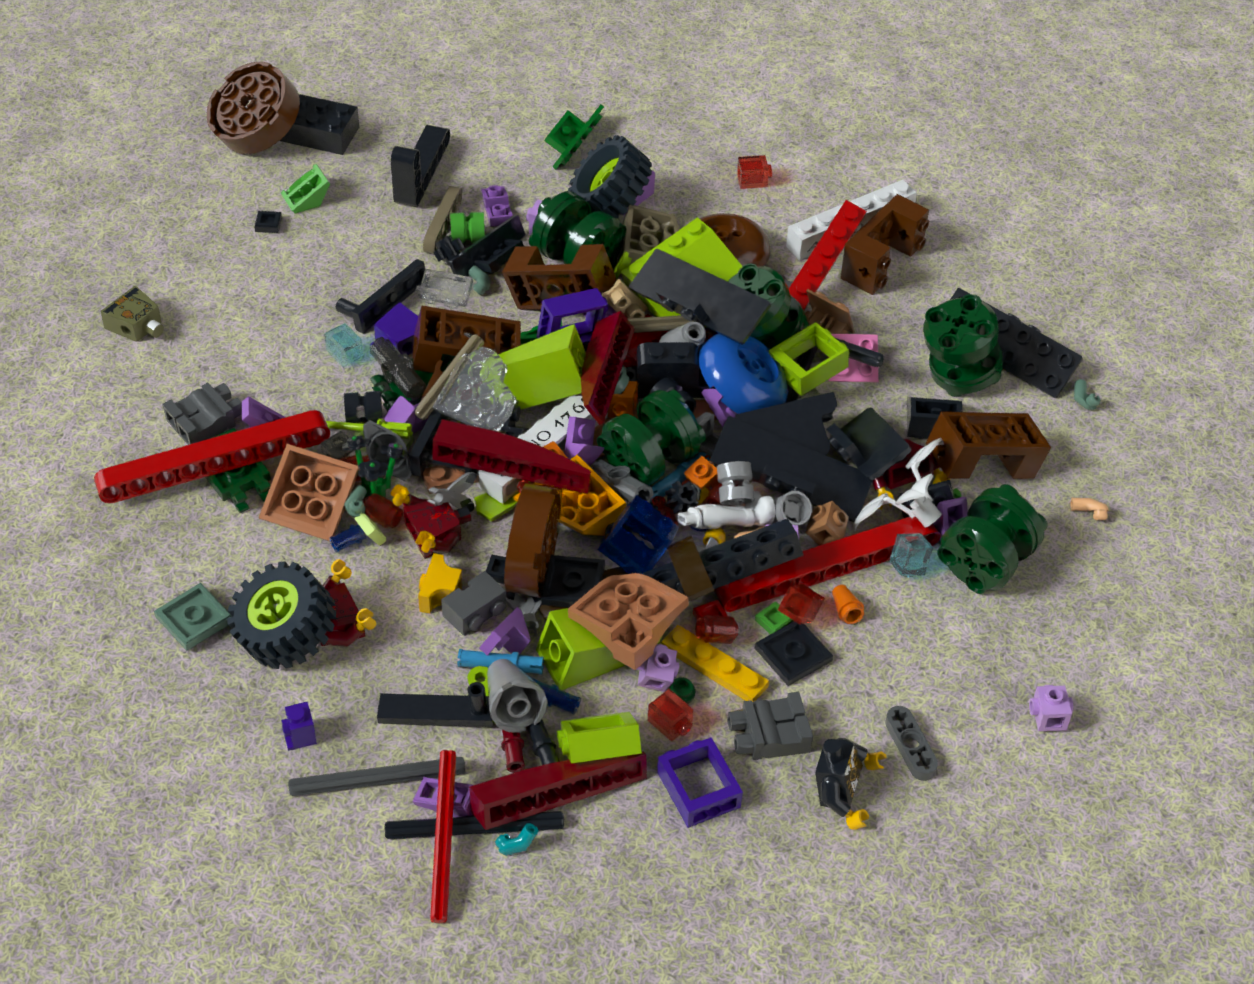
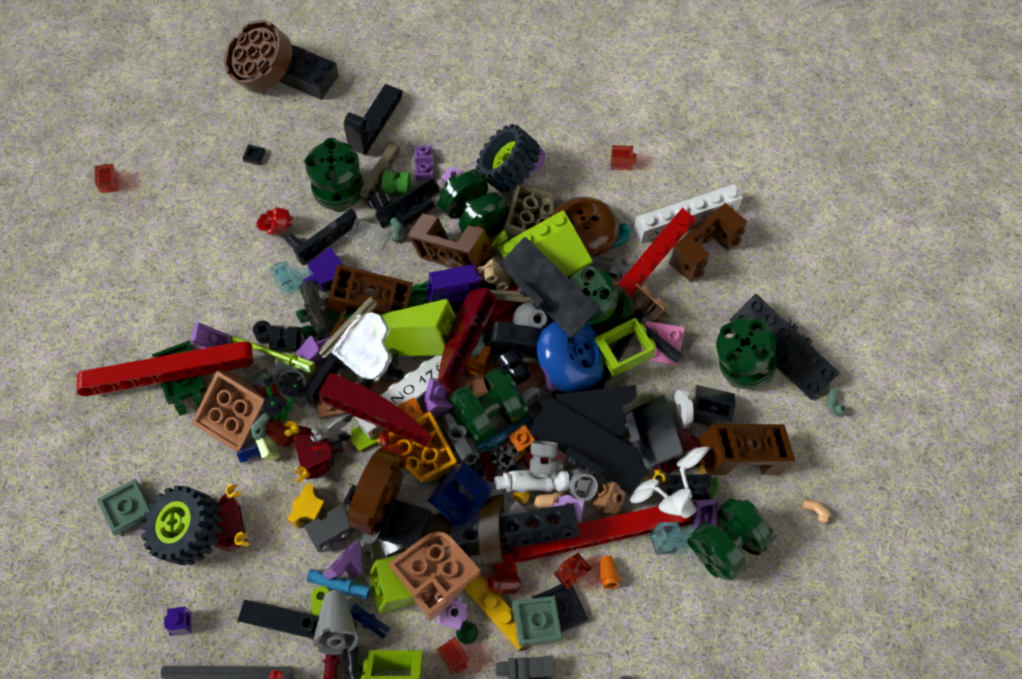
camera: 10 degrees right, 15 degrees up
(76, 266) = (106, 178): none -> clear red brick
(133, 316) = (137, 229): olive torso -> none
(203, 413) = (168, 325): dark grey hips -> none
(307, 190) = (286, 131): bright green slope -> none
(317, 285) = (275, 221): none -> red head
(331, 406) = (262, 337): none -> black wheel
(388, 222) = (333, 174): none -> dark green wheel
(567, 134) = (490, 102): green bracket -> none
(769, 661) = (536, 621): none -> sand green plate
(772, 619) = (547, 576): bright green tile -> none
(776, 253) = (624, 234): none -> teal arm
(898, 414) = (683, 409): none -> white tile

